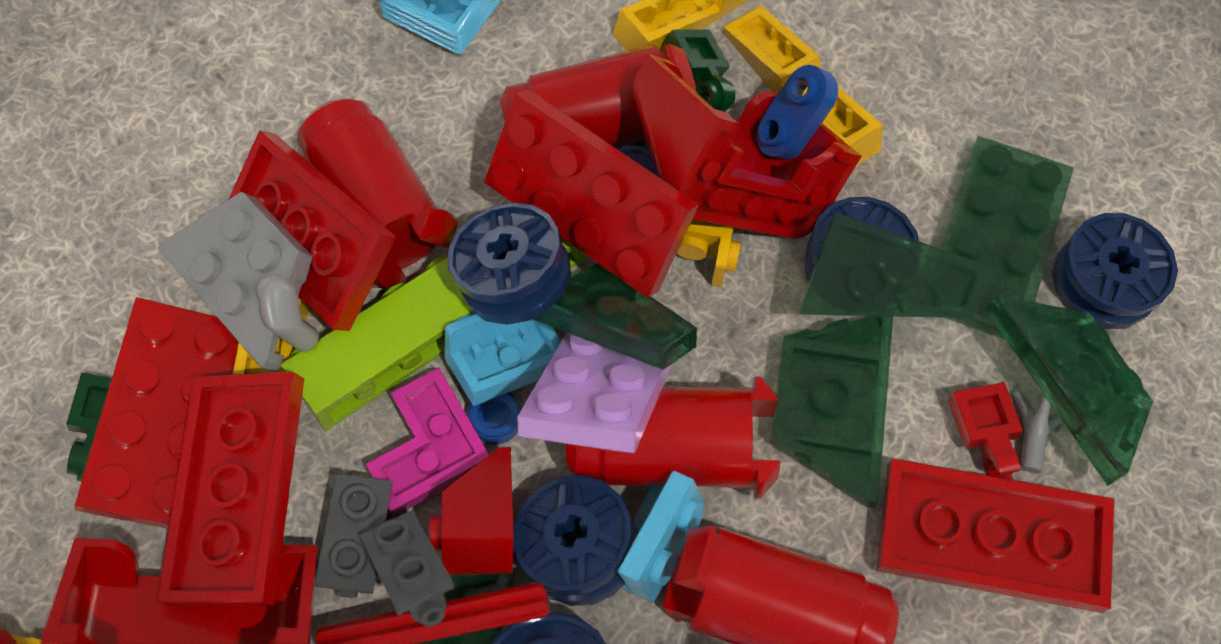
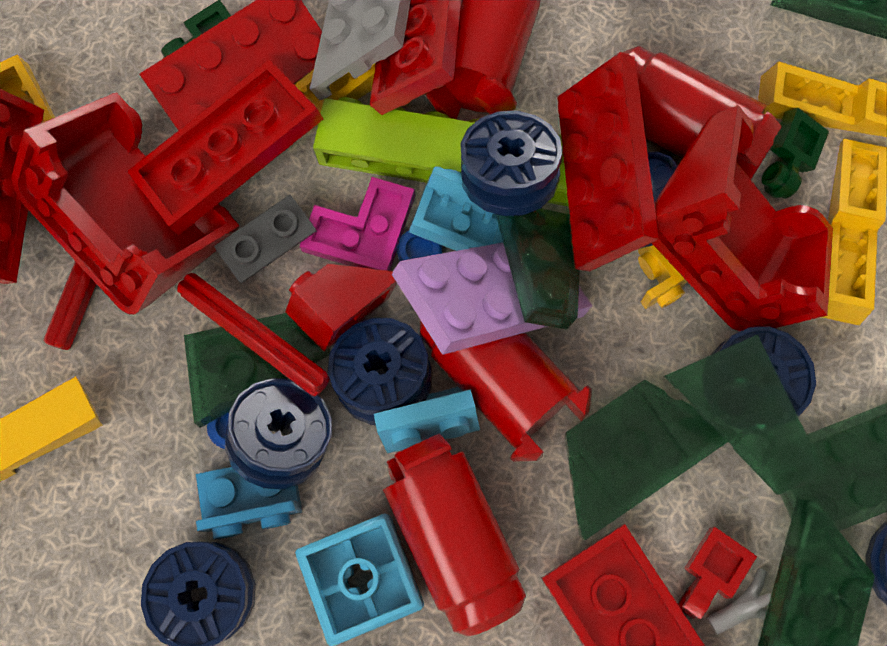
camera: 55 degrees right, 10 degrees up
(282, 313) = (347, 65): light grey arm -> none
(409, 568) = (262, 288): dark grey hinge -> none
(797, 114) = (820, 243): blue plate -> none

